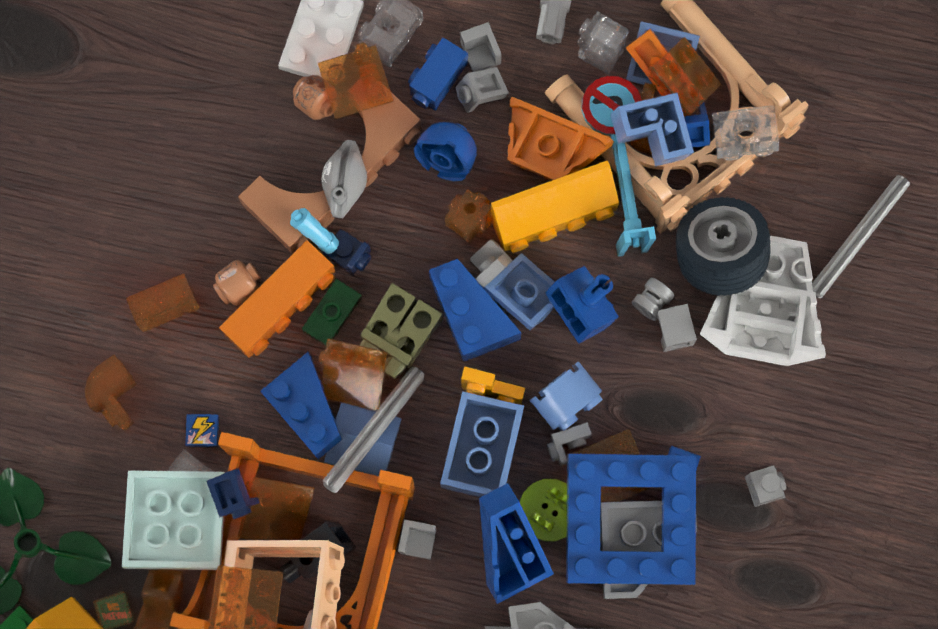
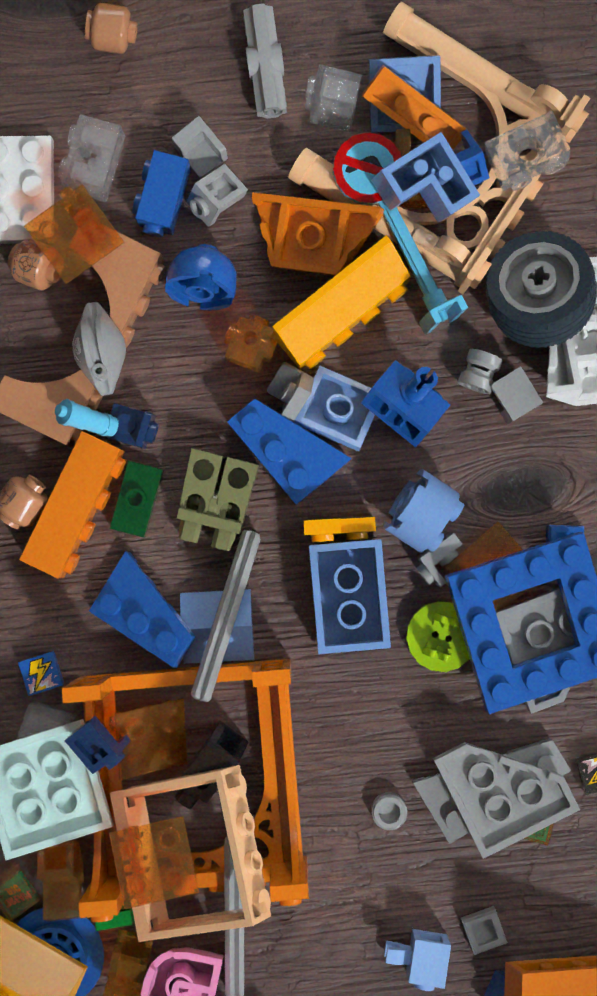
camera: 20 degrees left, 10 degrees up
(353, 373) = (182, 561): clear orange hinge -> none
(417, 539) = (311, 715): light grey panel -> none
(509, 545) = (415, 696): blue wedge -> none
(686, 74) = (438, 108): clear orange hinge -> none

